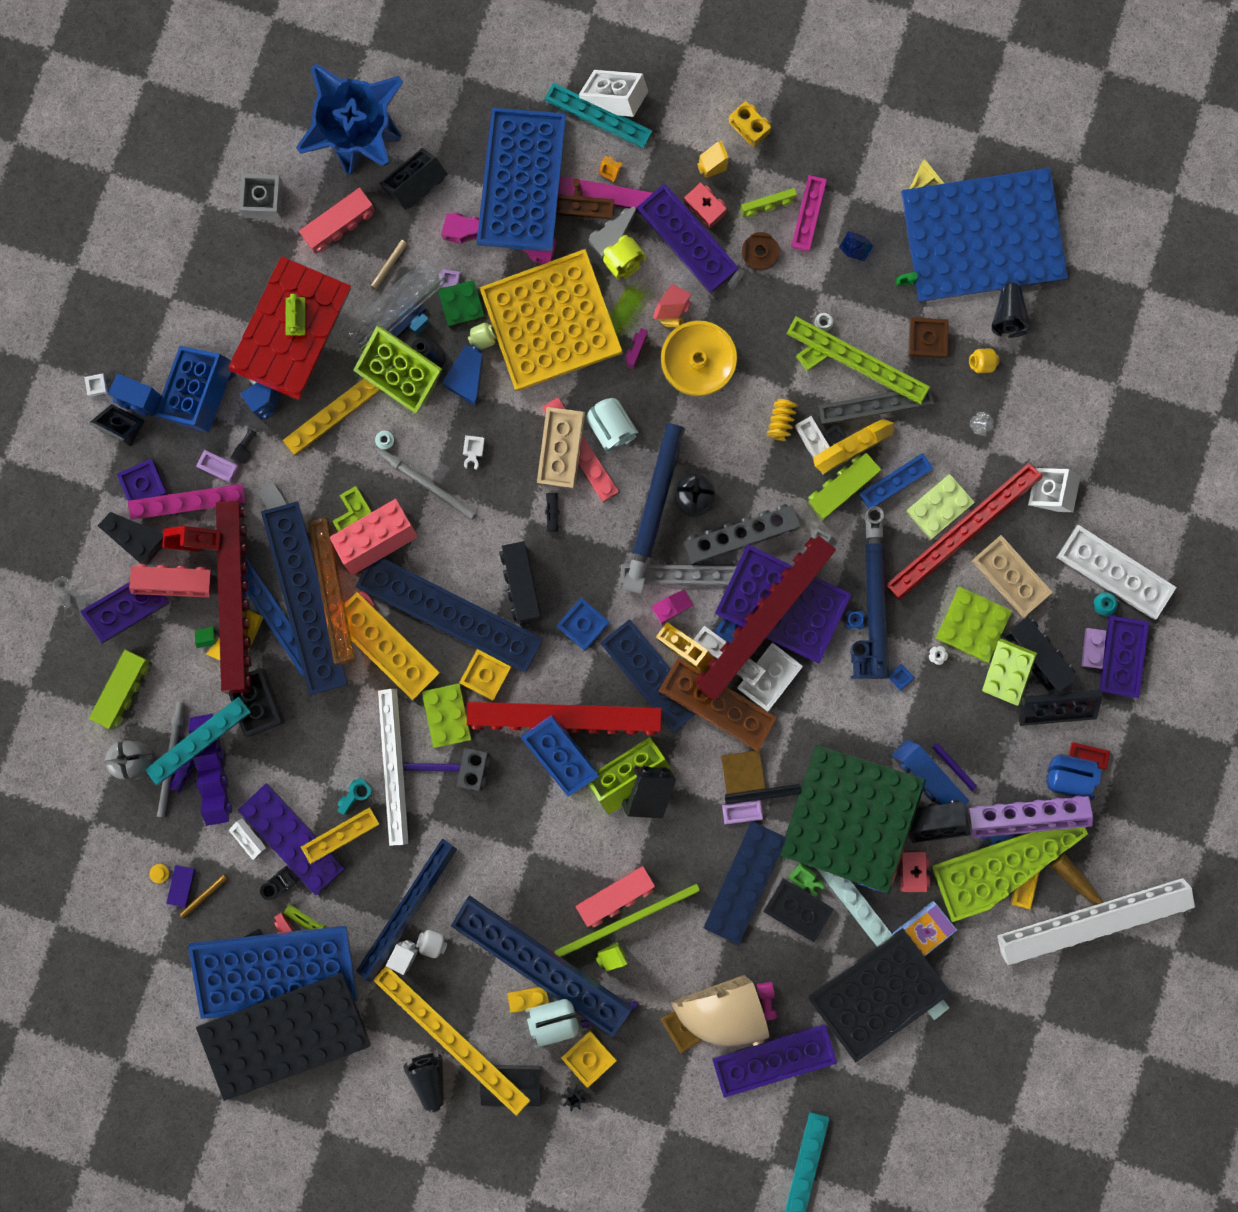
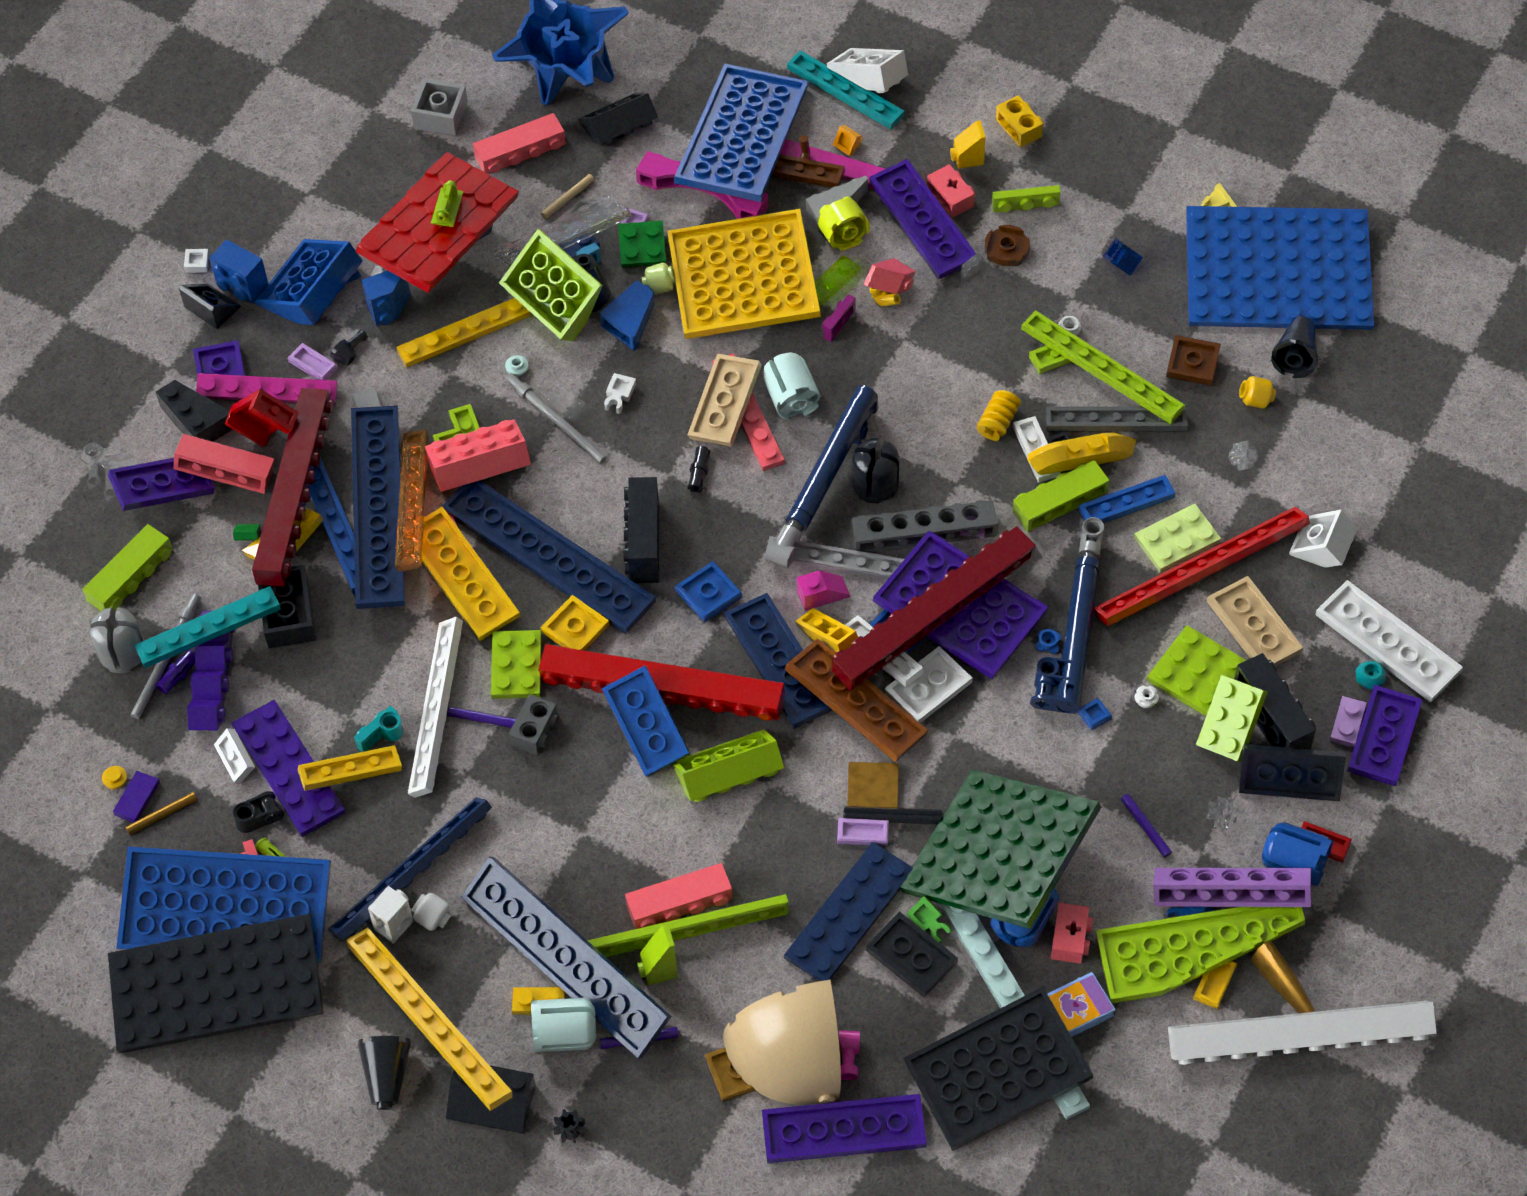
camera: 10 degrees right, 25 degrees down
(588, 1059) = (599, 1083): yellow plate -> none
(650, 792) = (748, 775): black panel -> none
(698, 358) = (910, 336): yellow dish -> none
(808, 213) = (1072, 217): dark pink plate -> none
(907, 279) = (1178, 297): green tile -> none
(917, 762) = (1116, 829): blue wedge -> none
(940, 822) = (1110, 873): black slope -> none

